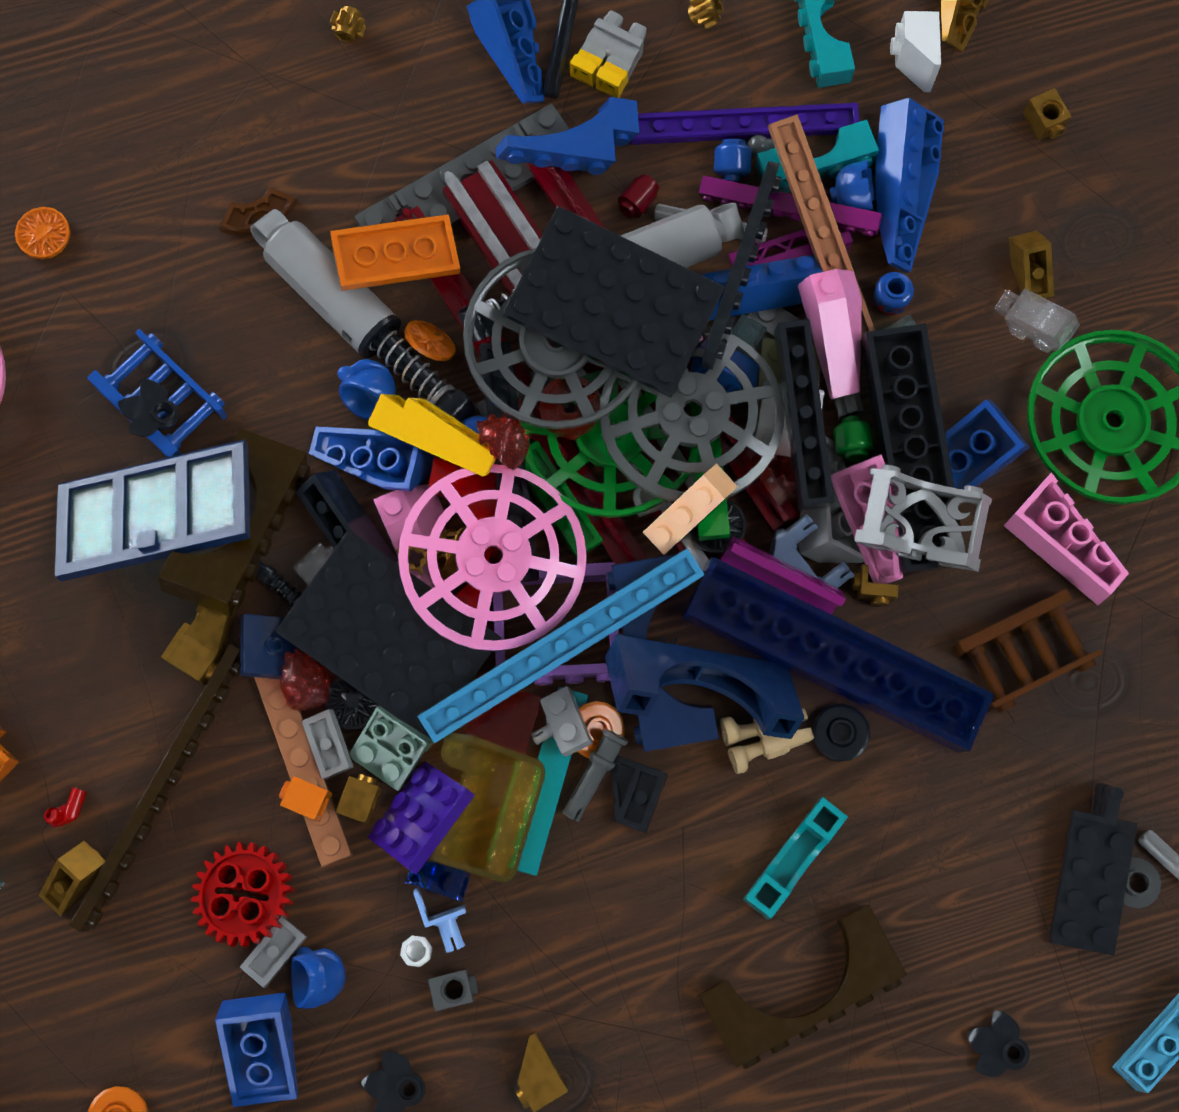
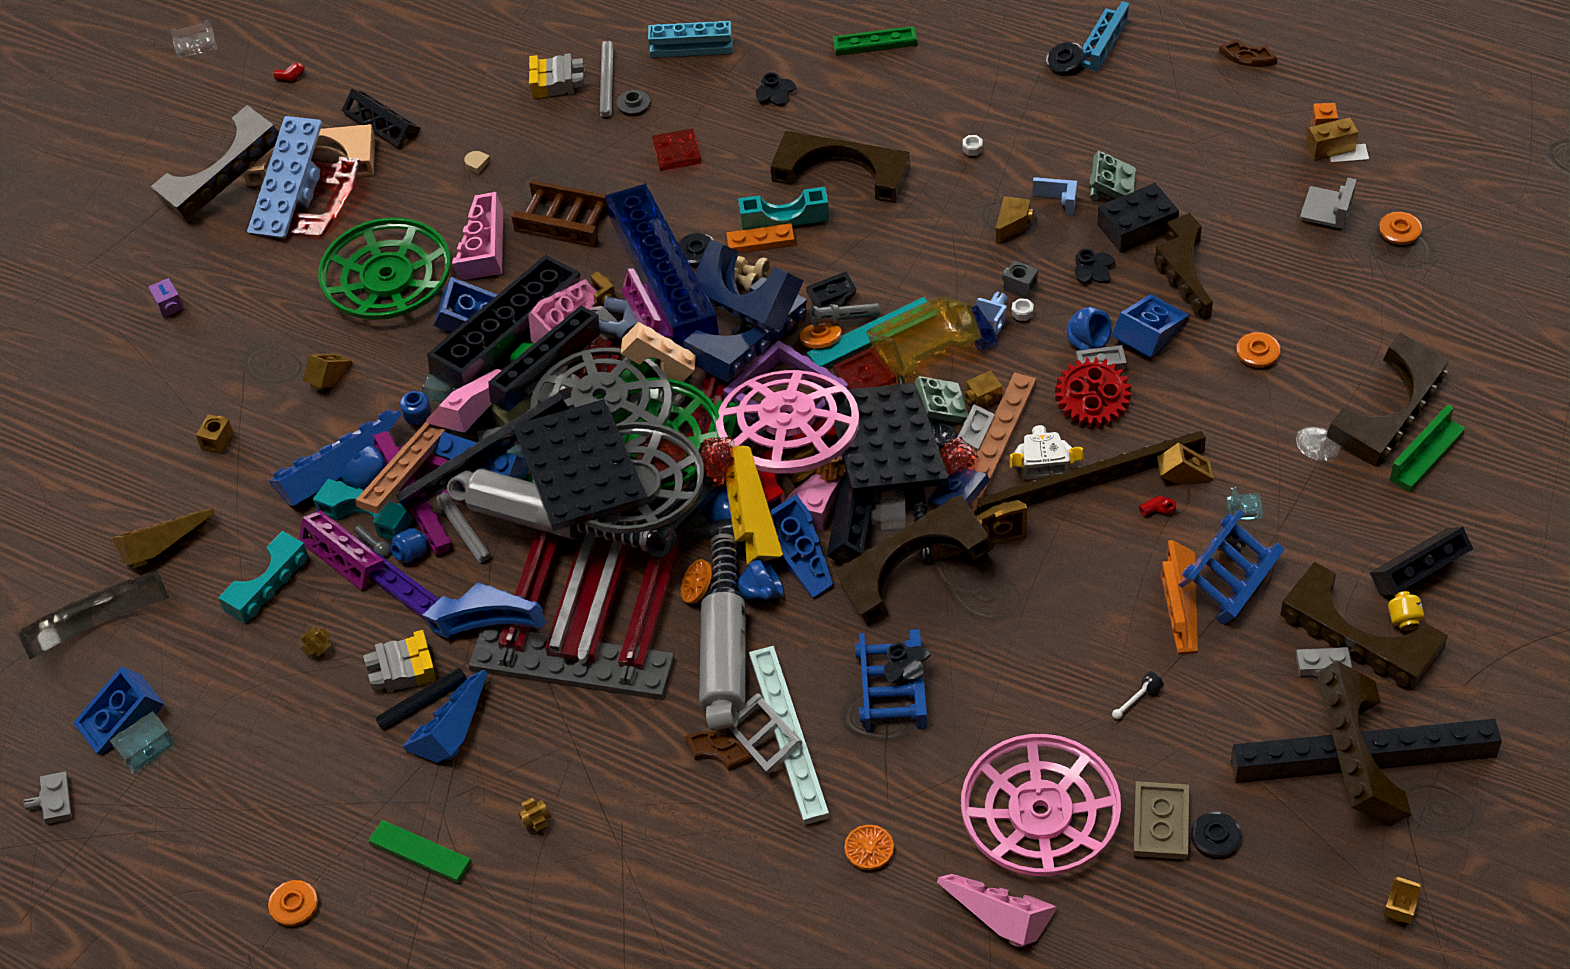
camera: 130 degrees left, 25 degrees down
(153, 510) = (958, 601): door -> none
(207, 273) = (799, 764): none -> light aqua plate
(219, 265) = (789, 748): none -> light grey window
(227, 768) = (1044, 454): none -> white torso
(304, 798) = (1012, 400): orange brick -> none
(395, 252) = (665, 621): orange plate -> none
(420, 816) = (957, 345): dark purple plate -> none
(560, 645) = (798, 352): dark azure plate -> none
(563, 723) = (835, 341): light grey plate -> none
(638, 196) = (485, 570): dark red brick -> none
(778, 106) = (339, 543): none -> magenta fence
(789, 808) = (761, 238): none -> orange plate
(879, 531) = (566, 272): light grey fence -> none
(918, 47) = (233, 512): white slope -> none
(1011, 854) = (676, 149): none -> clear red plate
(1037, 319) = (361, 336): clear brick -> none
(1094, 875) = (645, 114): black hinge -> none

